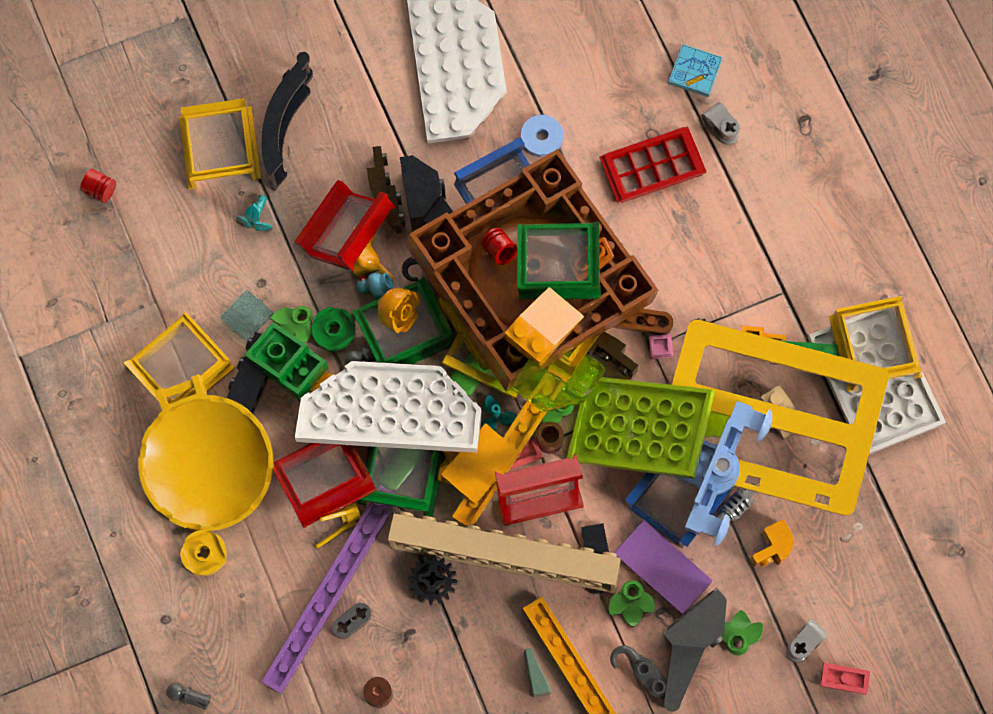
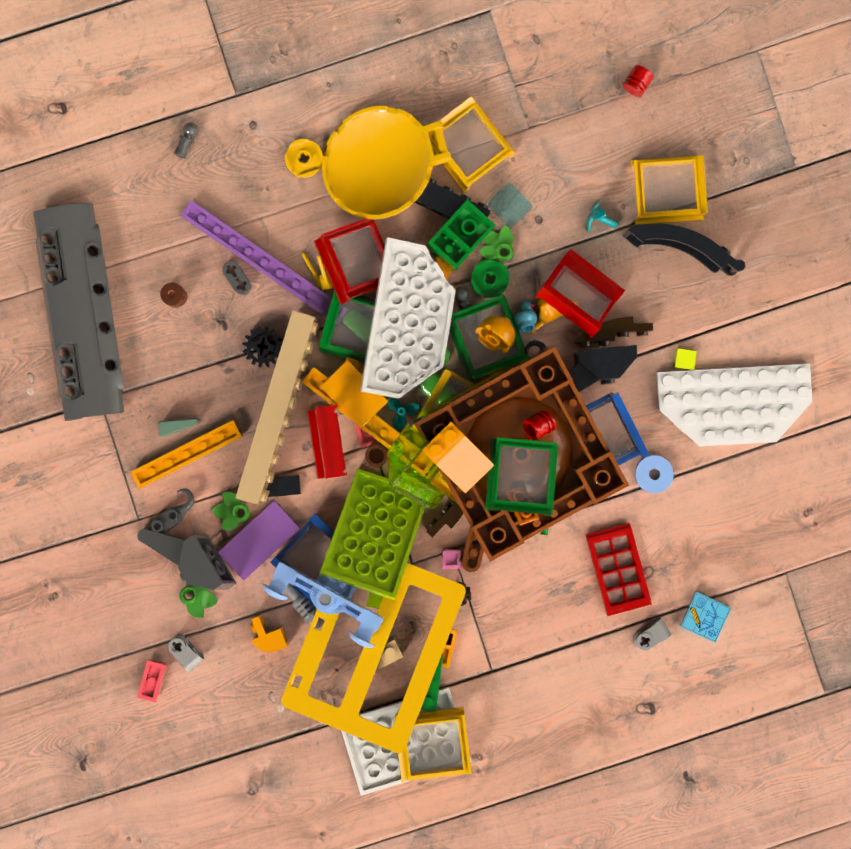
camera: 90 degrees right, 15 degrees up
(410, 113) = (685, 359): none -> neon yellow tile

